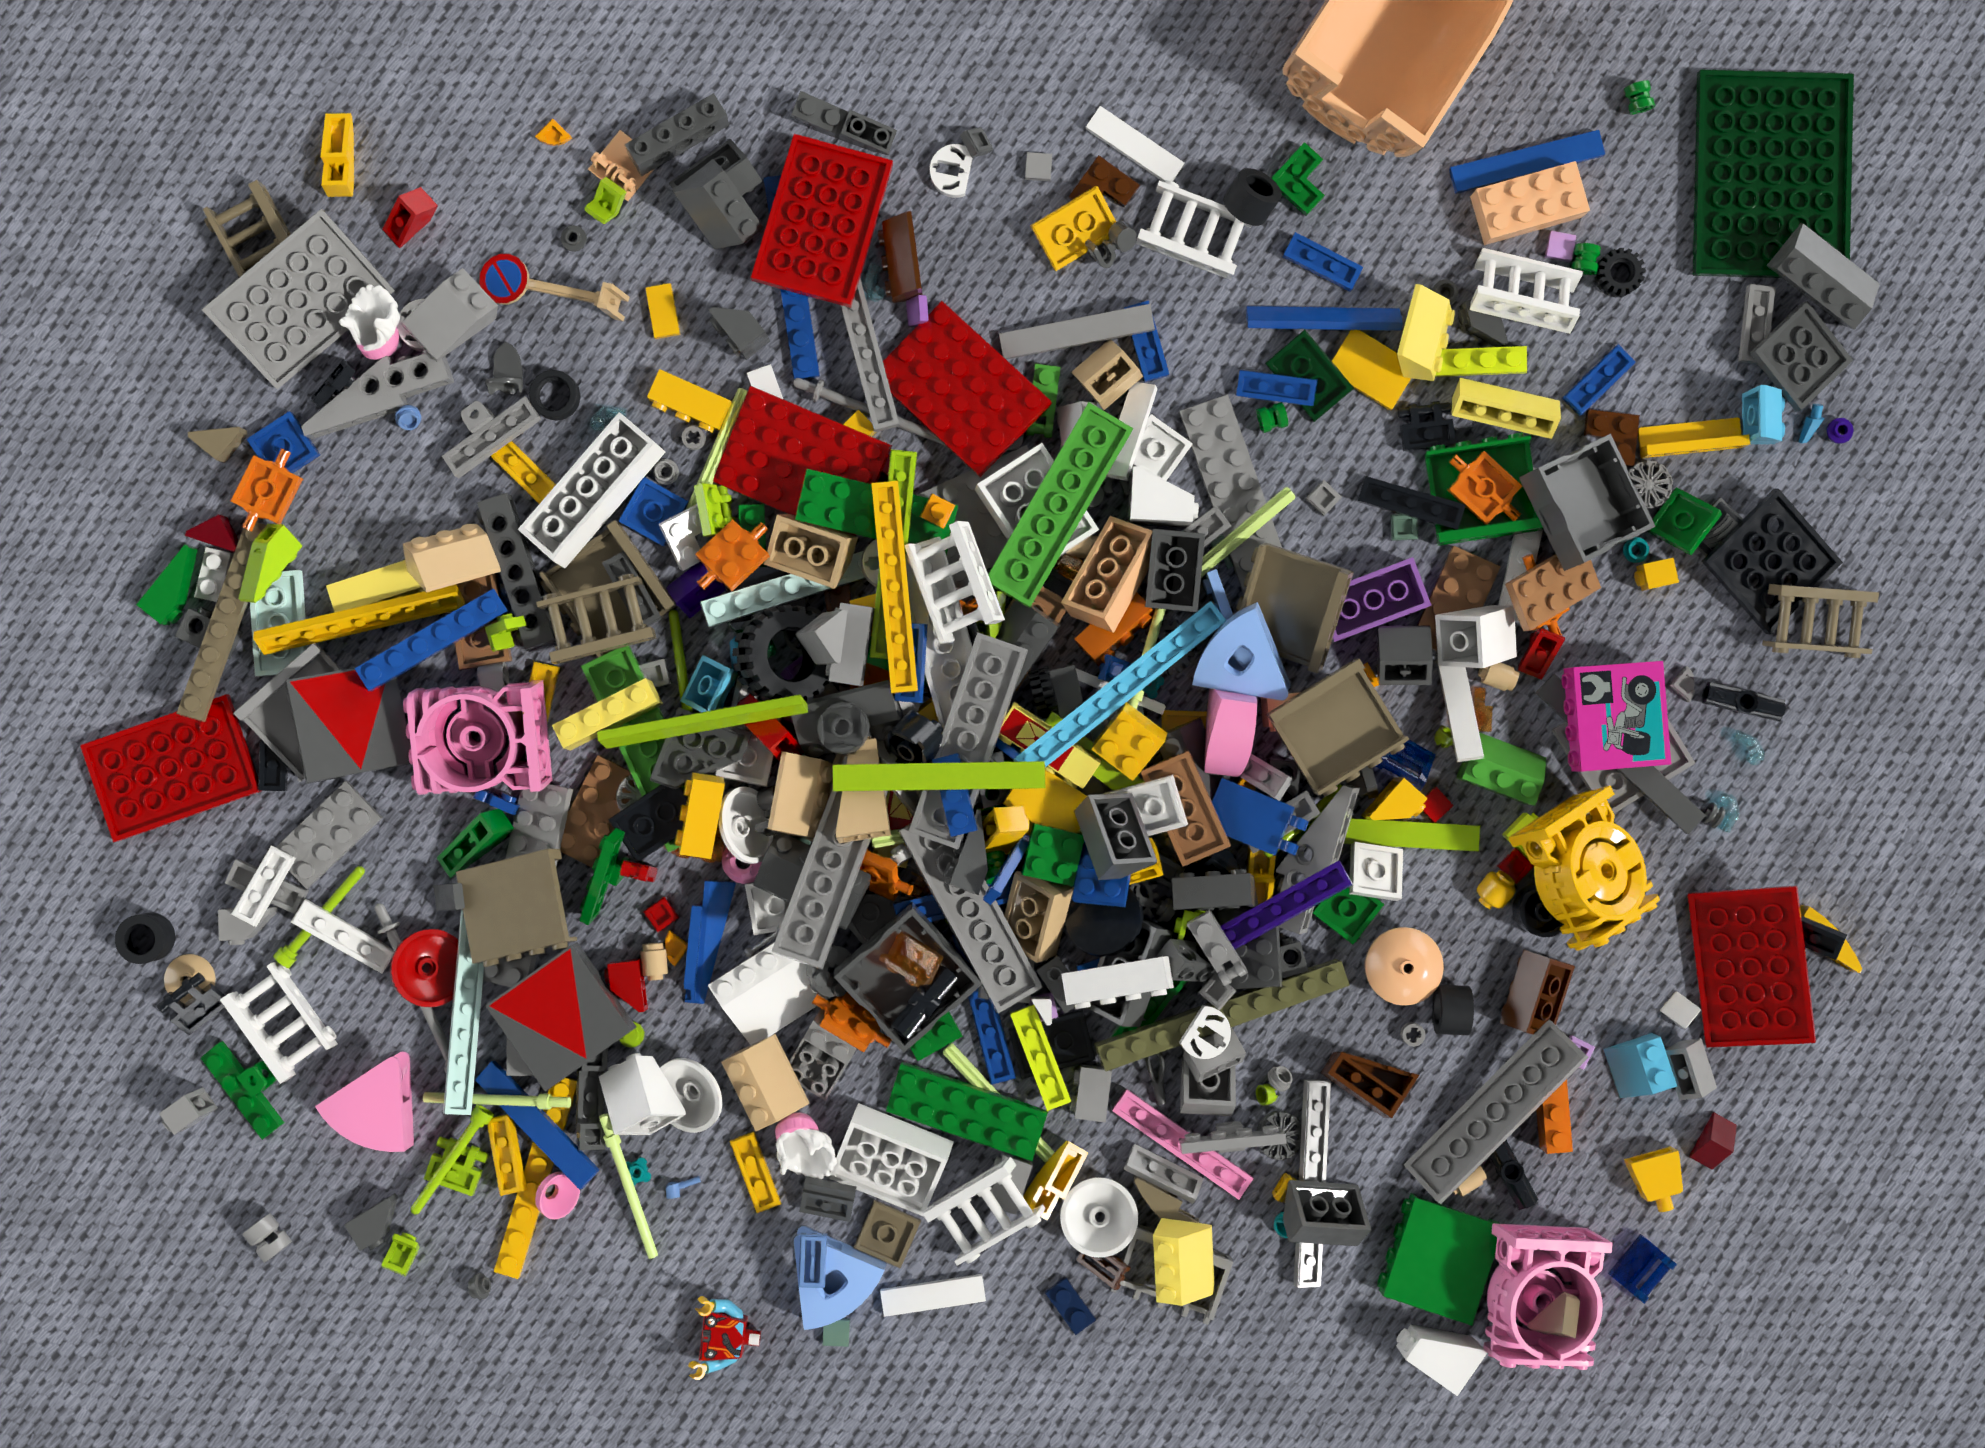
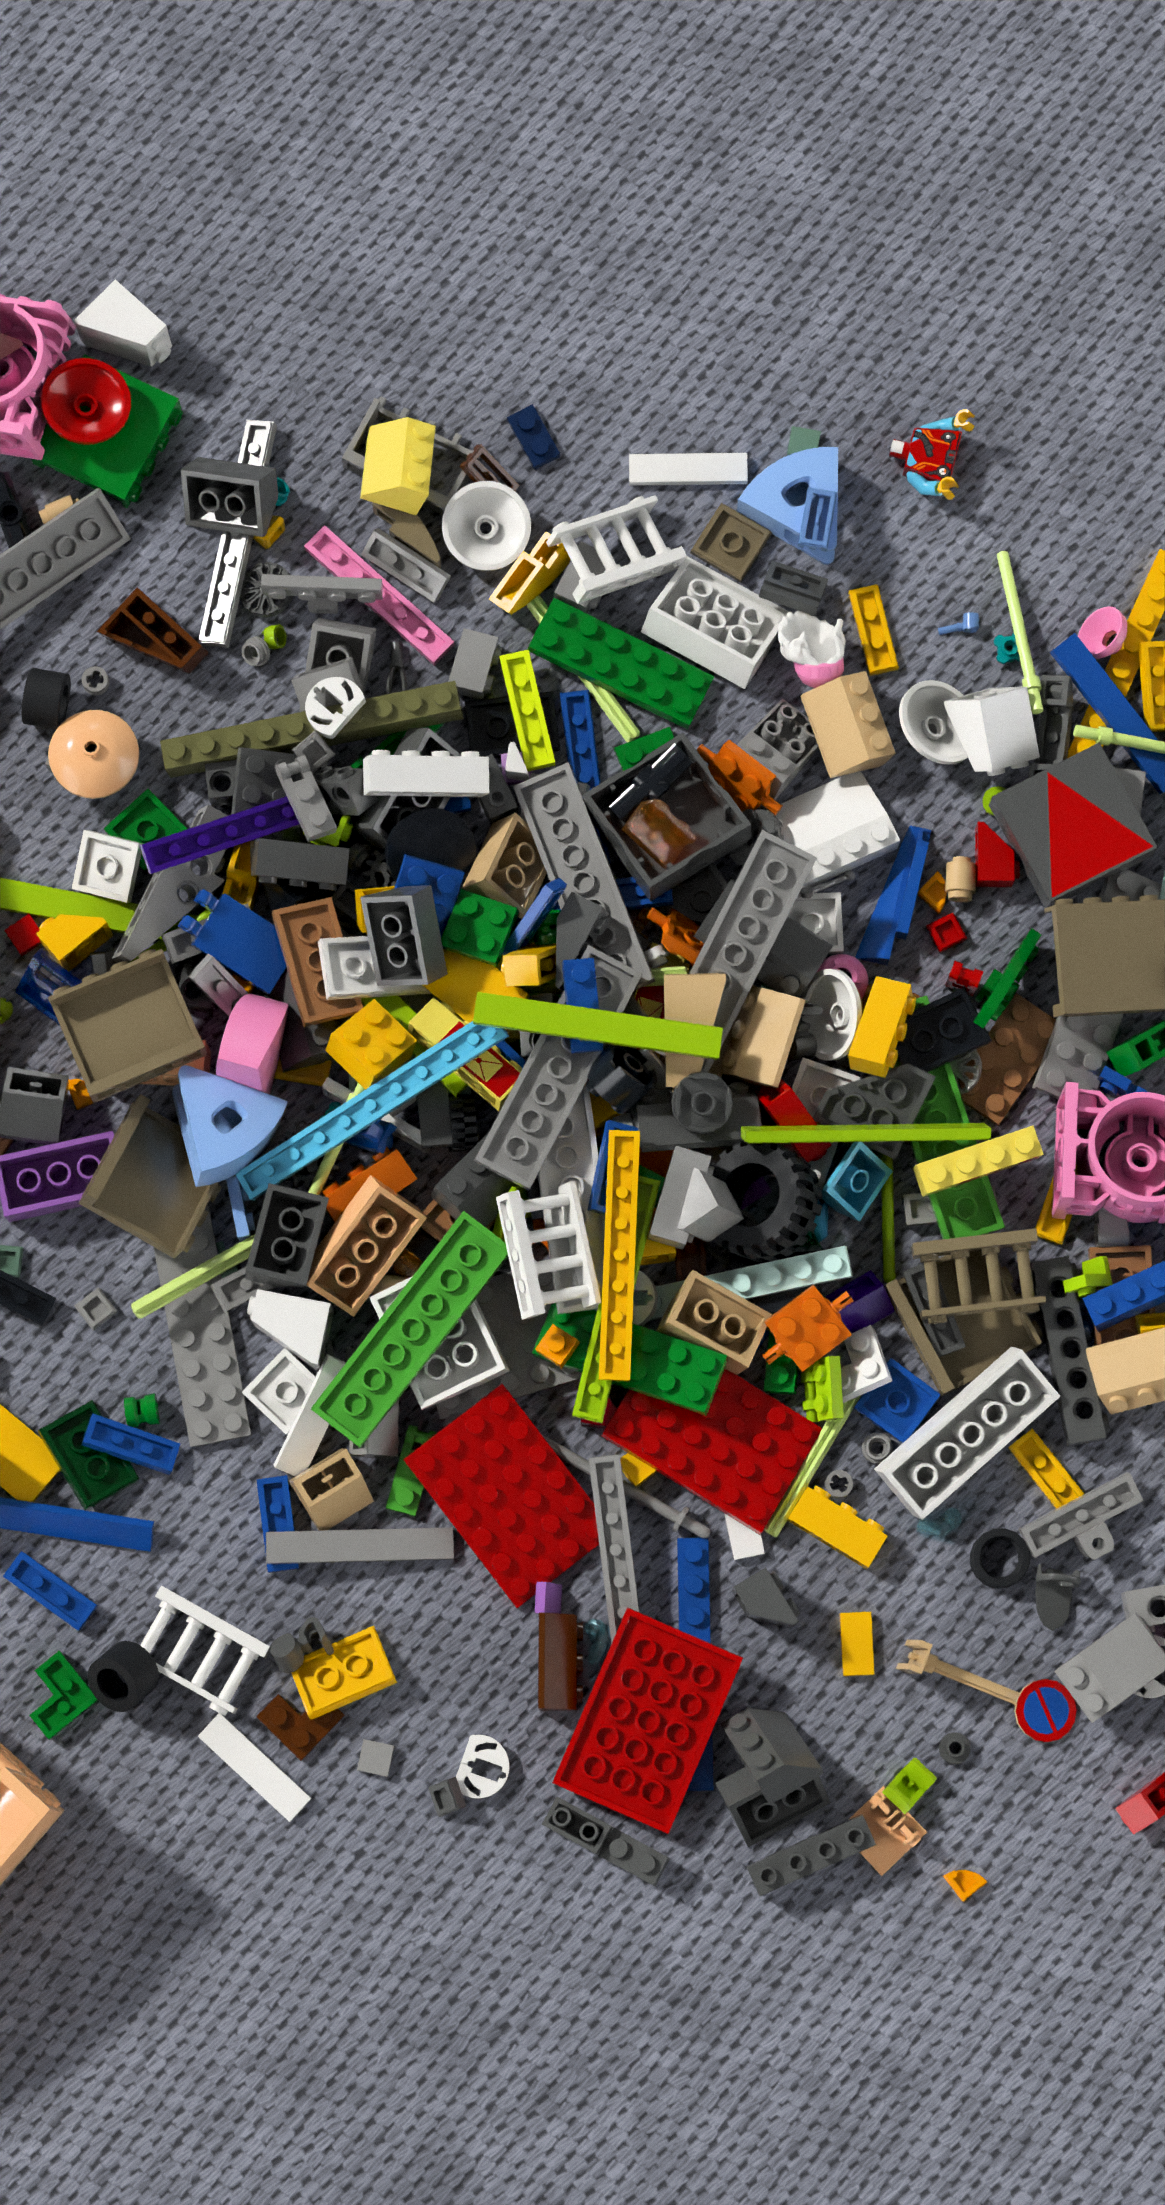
camera: 170 degrees left, 10 degrees down
(1468, 1296) = (91, 385): none -> red dish

